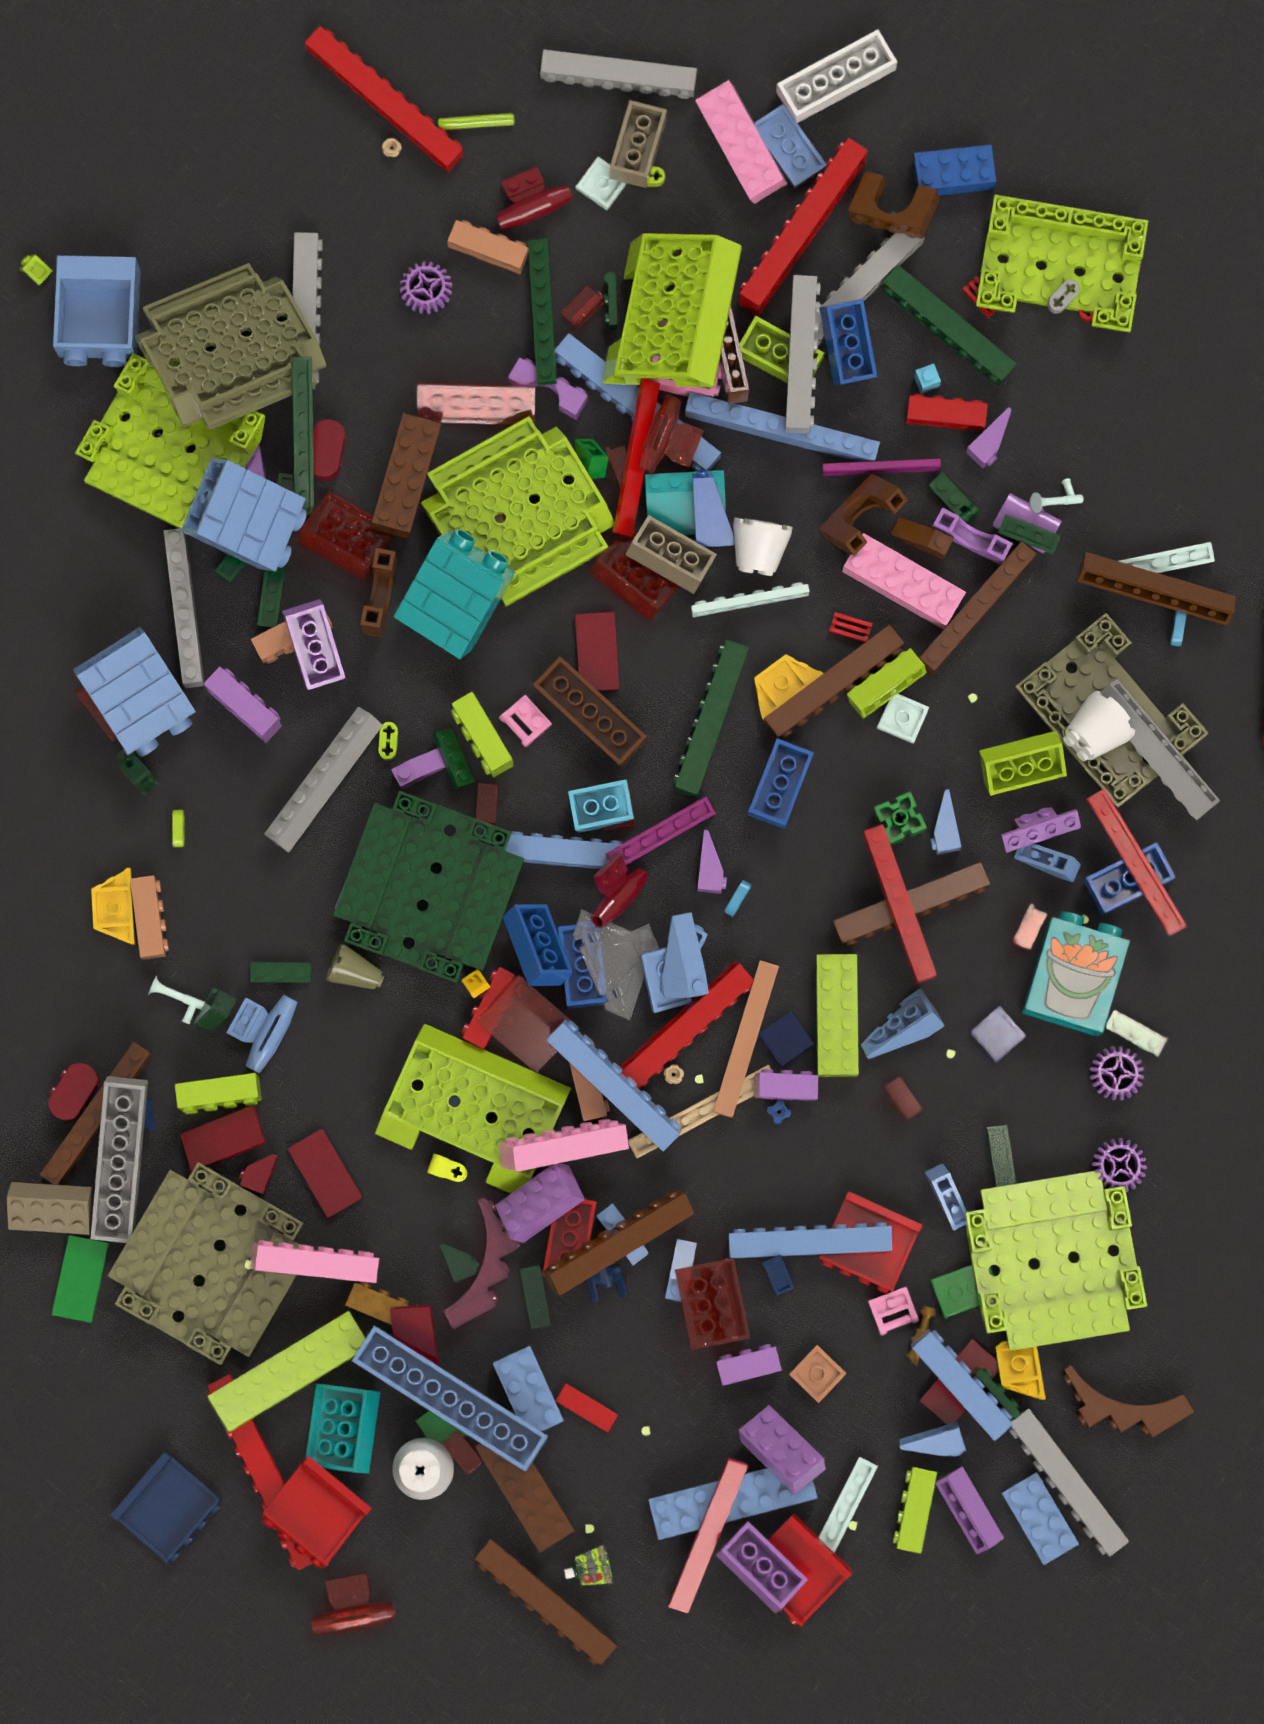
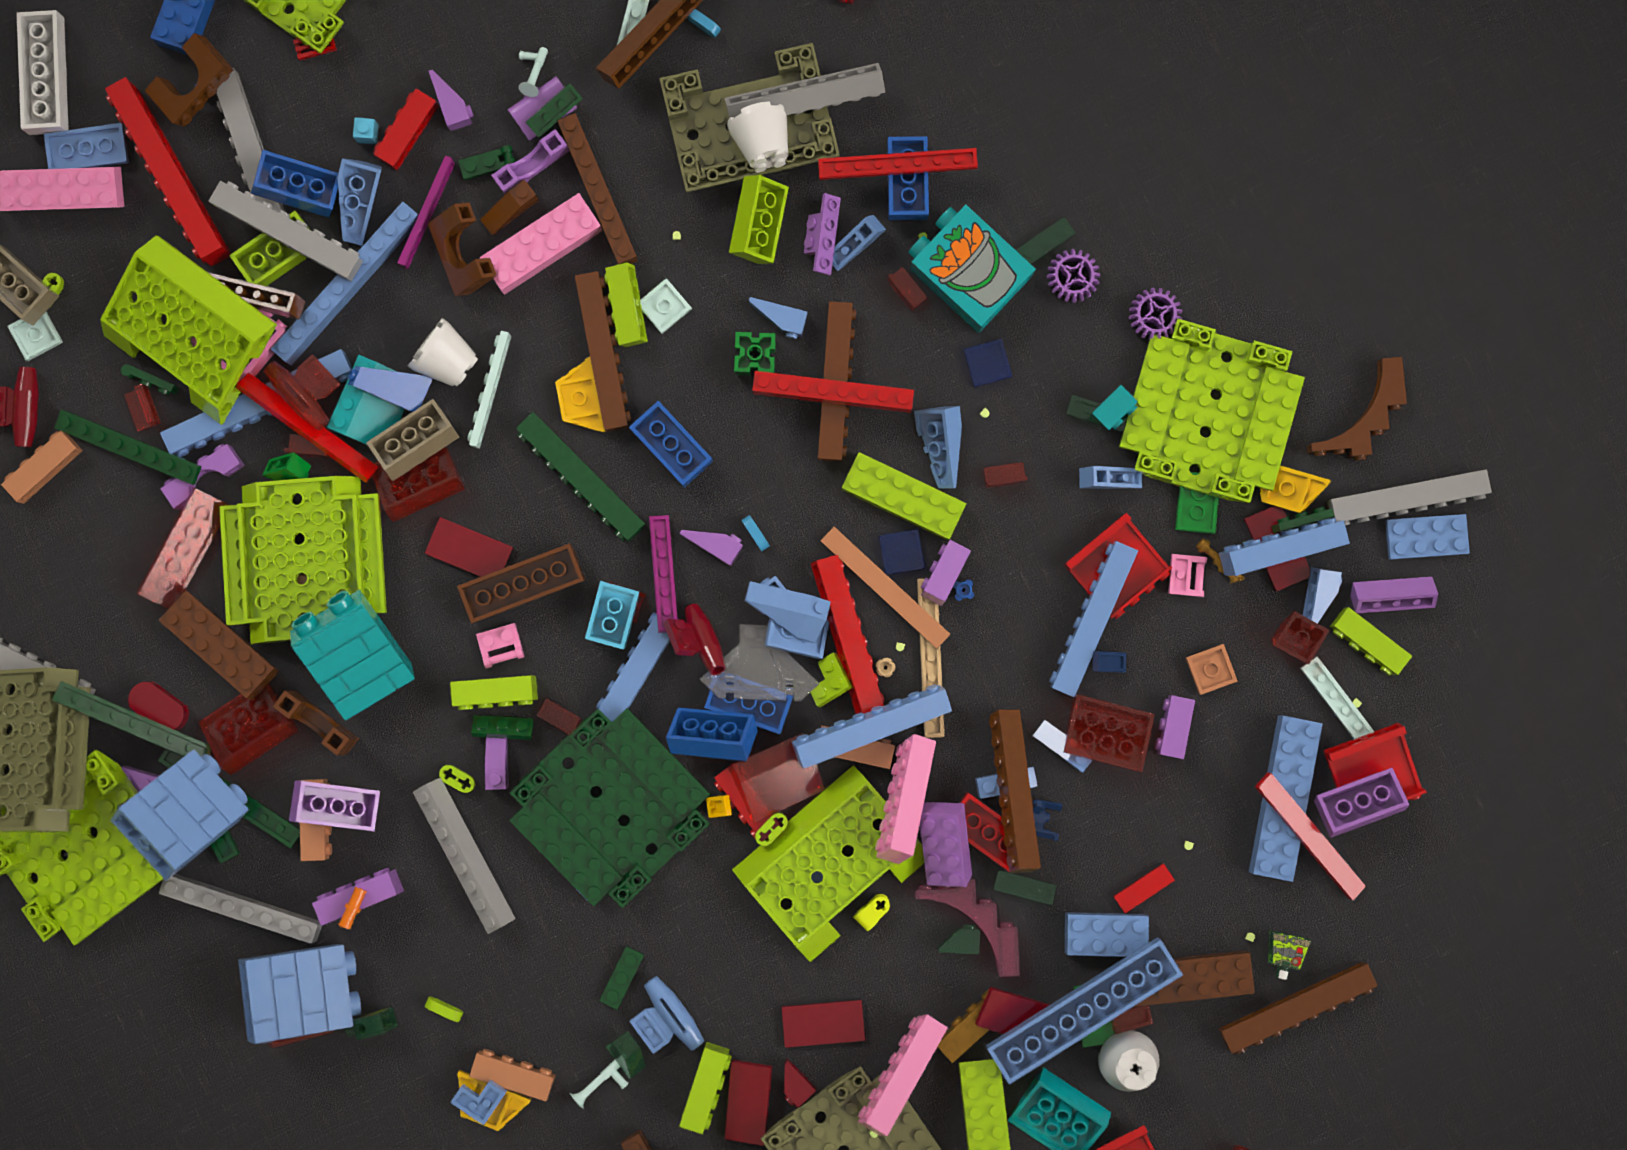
camera: 65 degrees left, 5 degrees up
(108, 900) = (479, 1106): none -> medium blue plate
(232, 703) = (352, 908): none -> orange pin
(353, 970) = (652, 911): olive cone -> none
(432, 284) = (50, 535): medium lavender gear -> none
(476, 1044) = (768, 825): none -> lime beam
(637, 1034) = (835, 680): none -> lime plate
(782, 1449) = (1267, 734): medium lavender brick -> none
(852, 620) = (570, 300): red tile -> none
(869, 397) = (356, 195): none -> medium blue wedge
(886, 1439) = (1299, 636): none -> clear red slope
(948, 325) = (325, 87): dark green brick -> none
(1013, 1167) = (1115, 407): none -> teal brick

